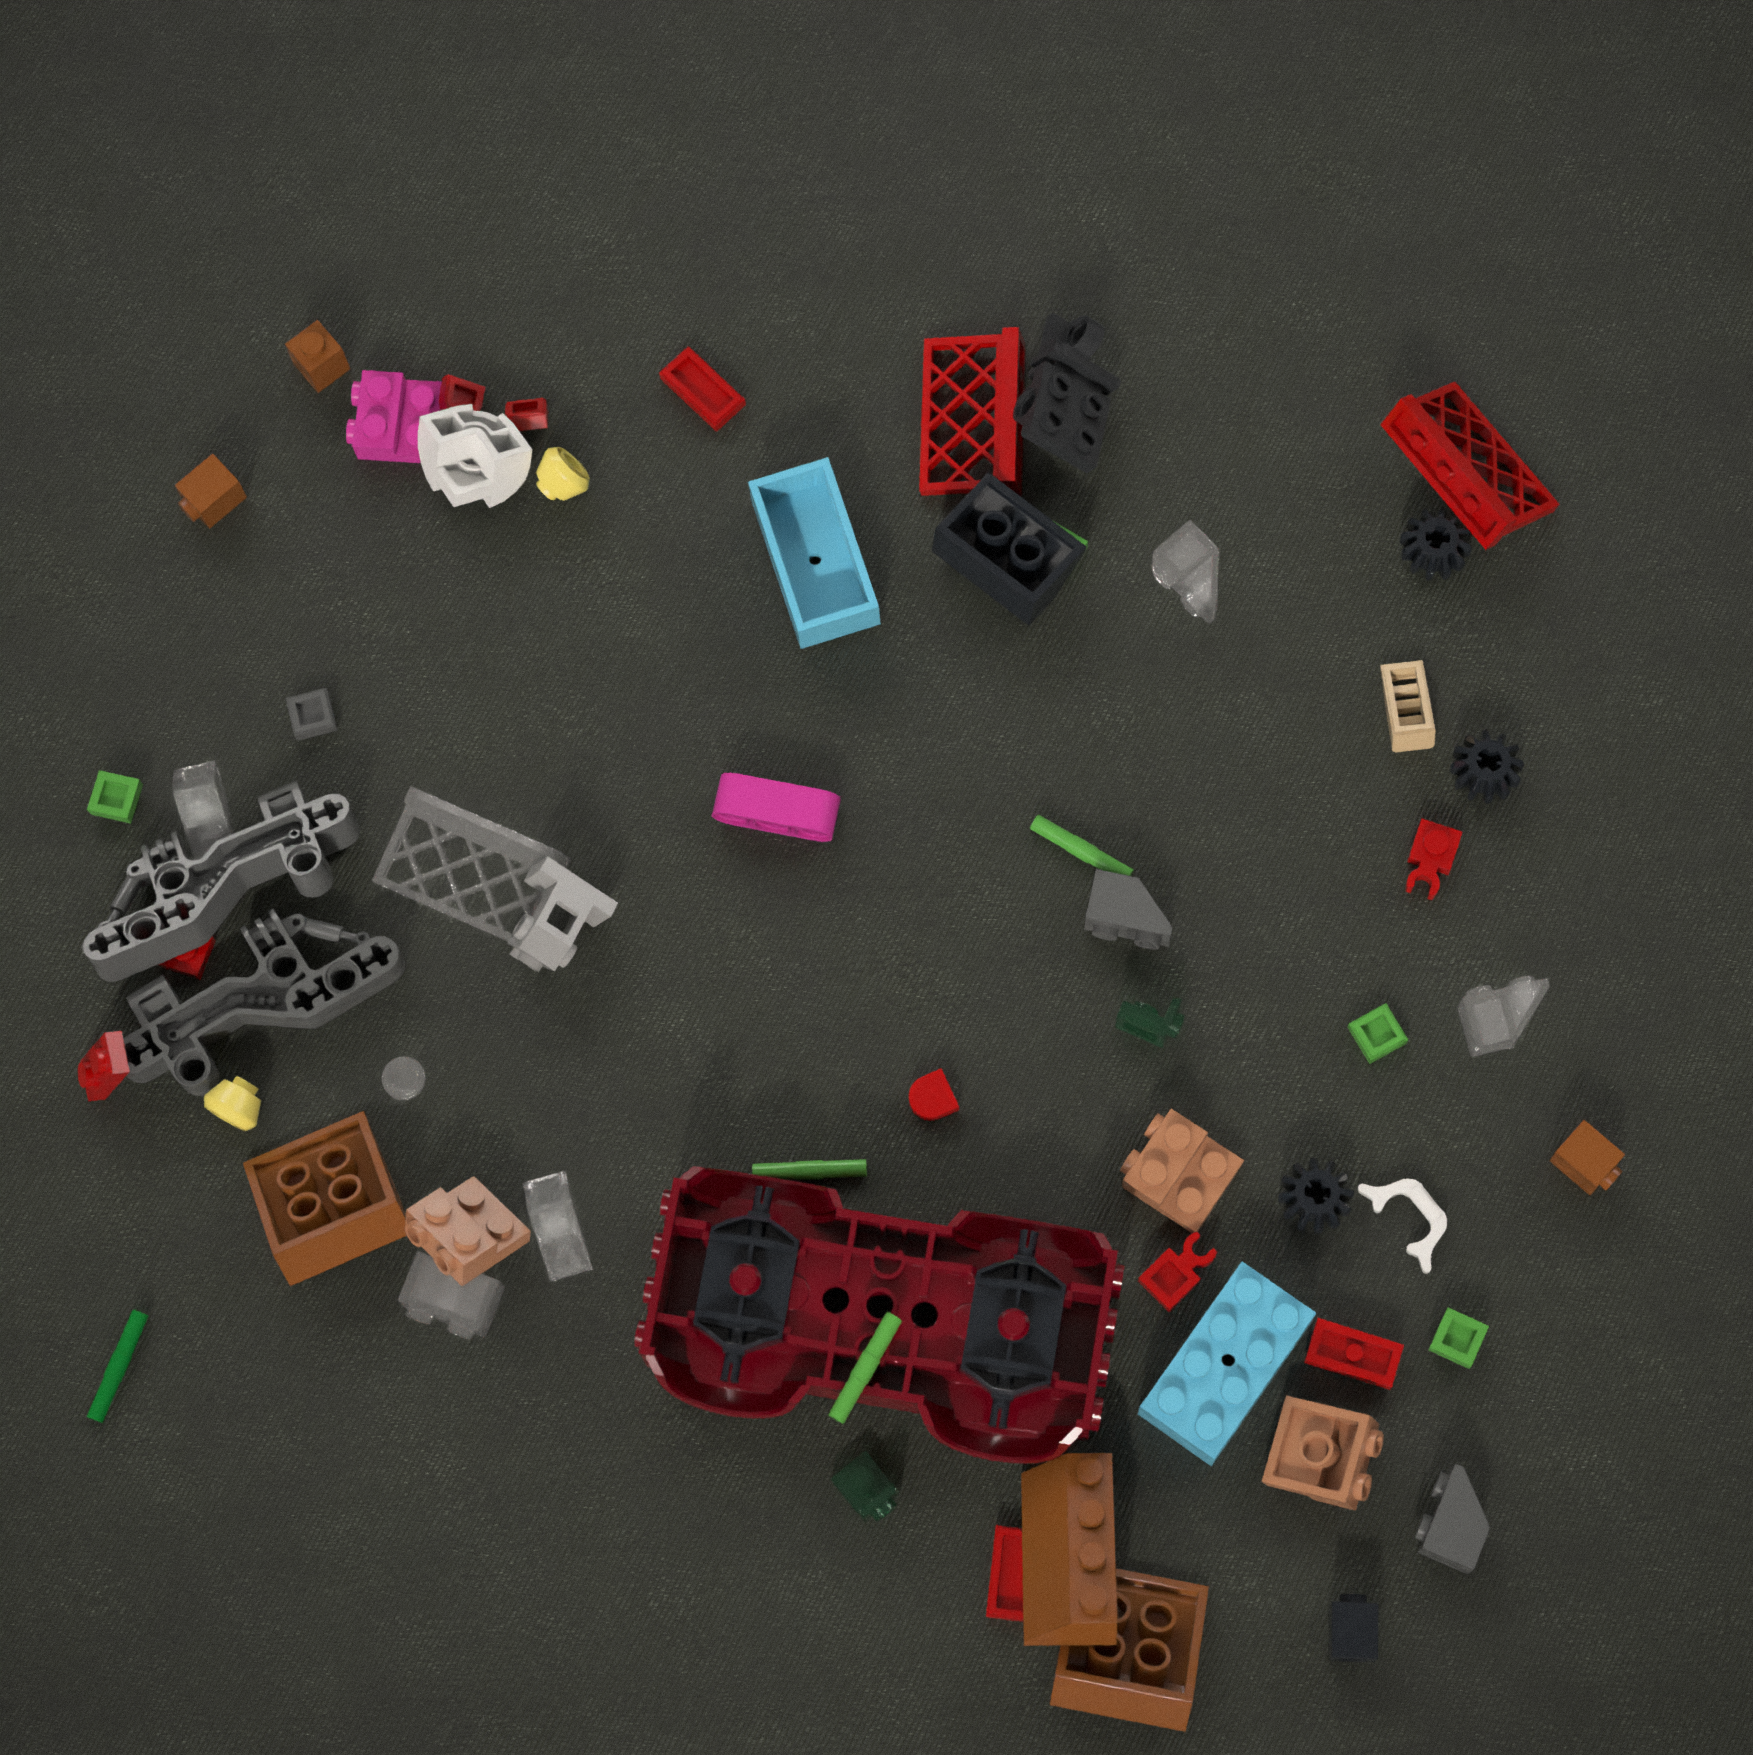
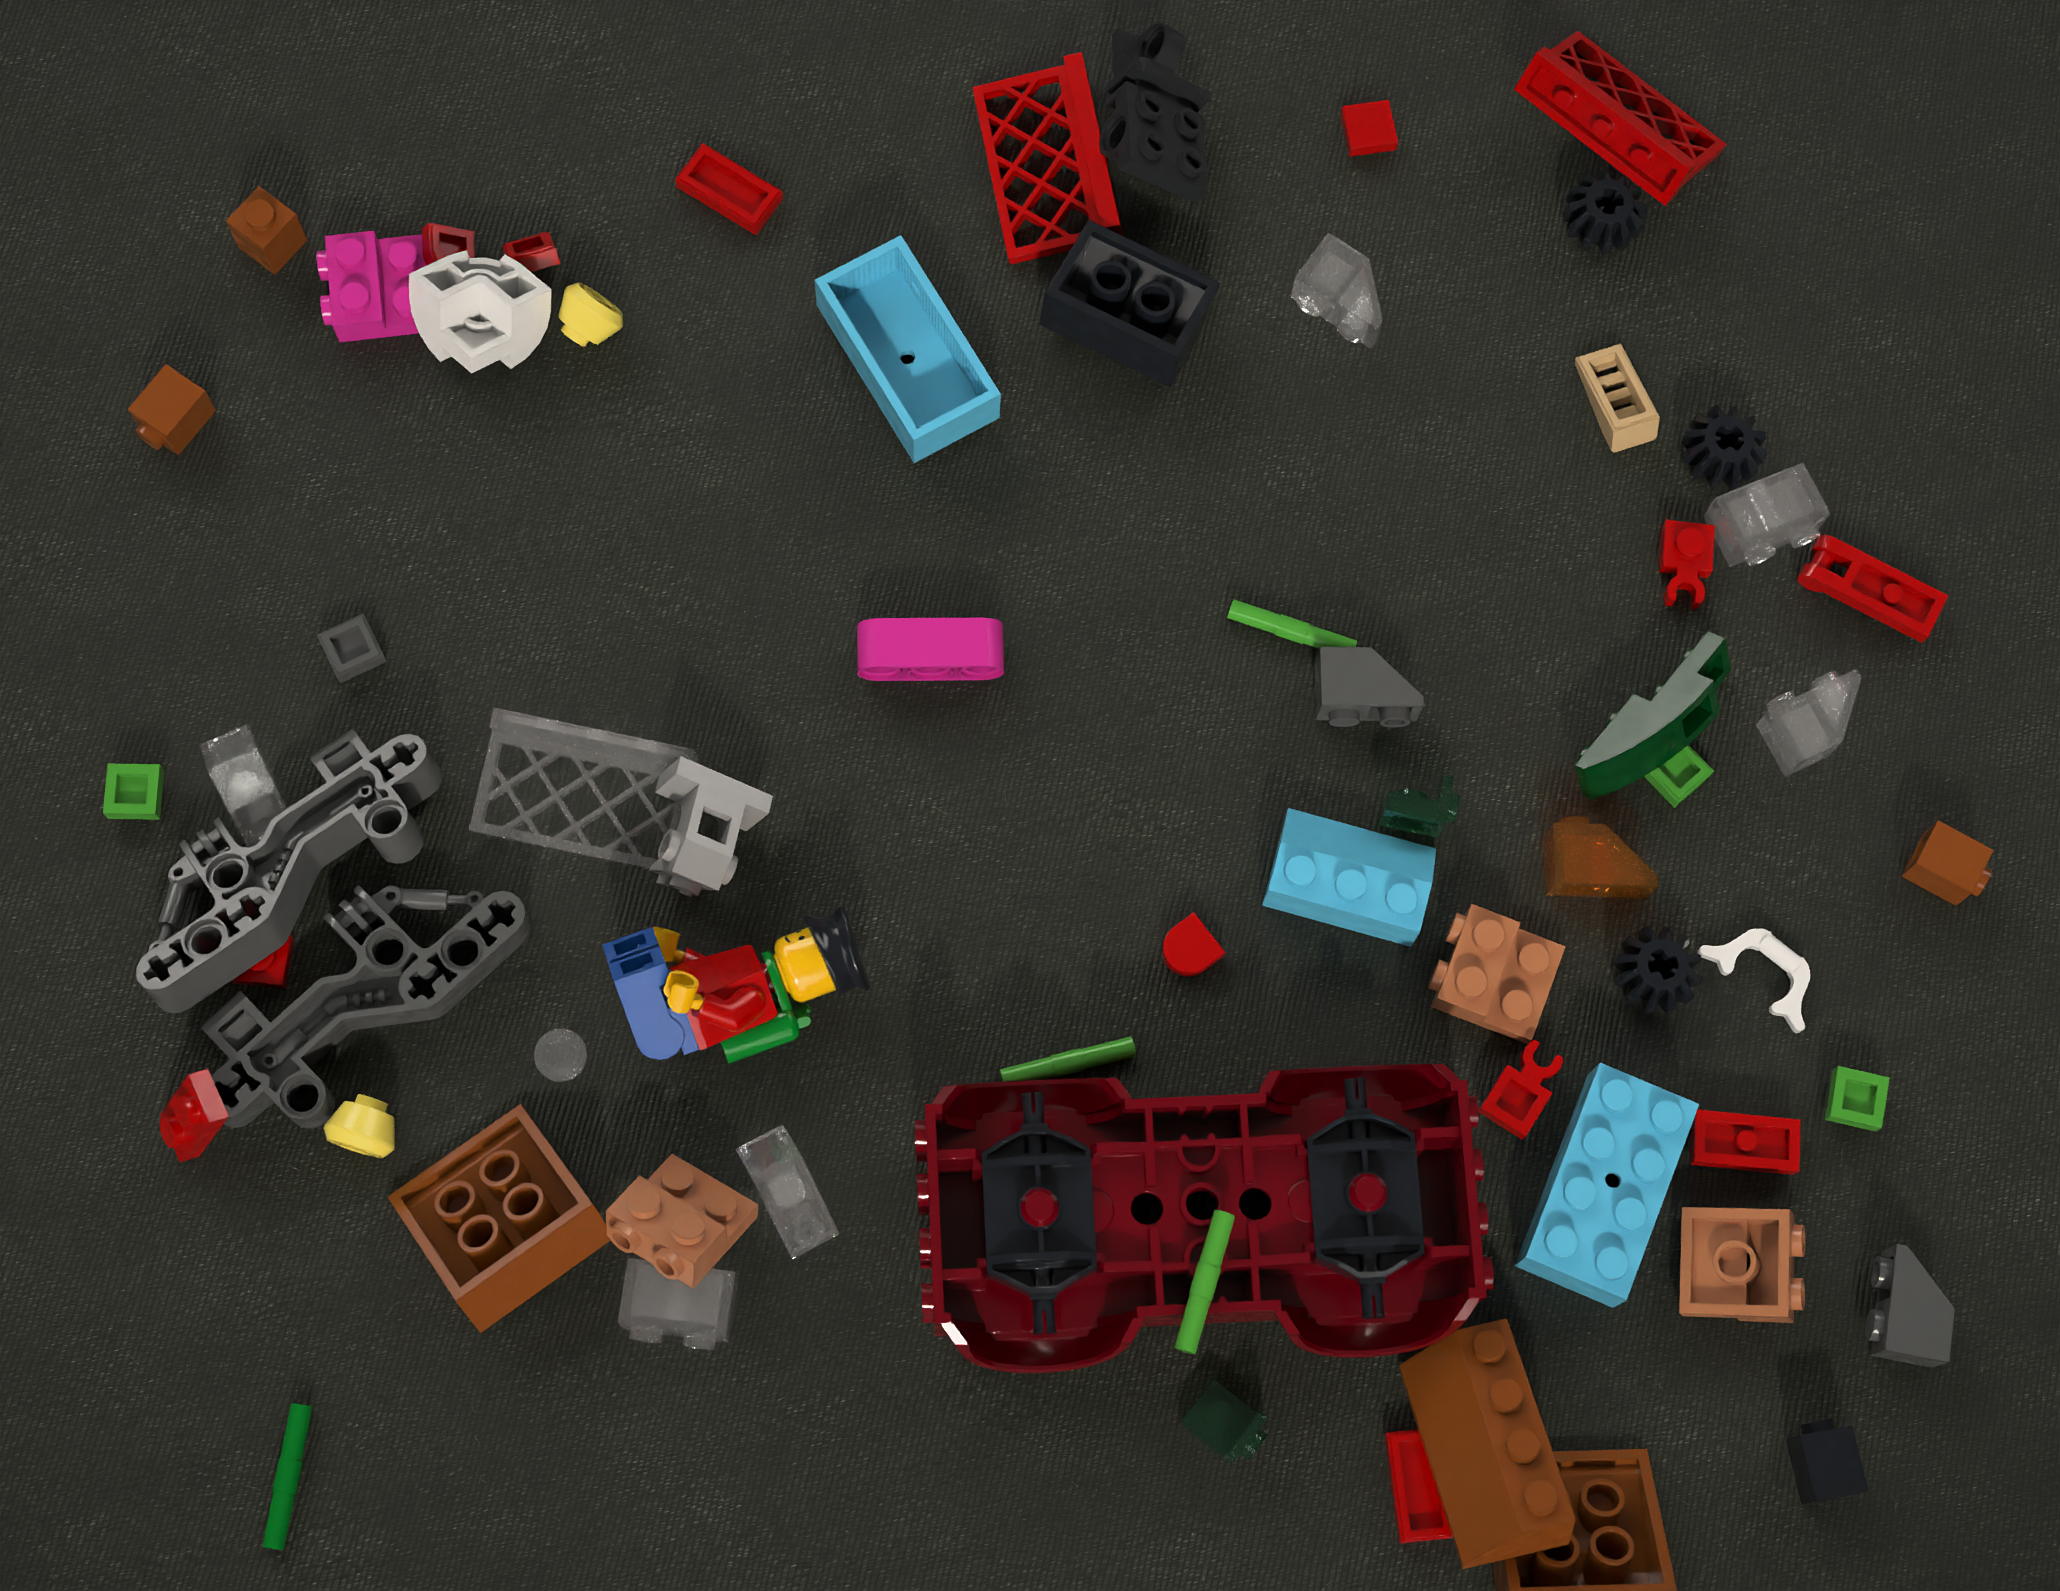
camera: 25 degrees left, 0 degrees up
(546, 1055) = (730, 992): none -> piece
(1077, 1065) = (1351, 877): none -> medium azure slope
(1252, 434) = (1368, 128): none -> red tile
(1284, 1095) = (1593, 862): none -> clear orange slope
(1362, 996) = (1656, 730): none -> dark green slope
(1509, 832) = (1767, 516): none -> clear brick
(1586, 912) = (1873, 588): none -> red plate

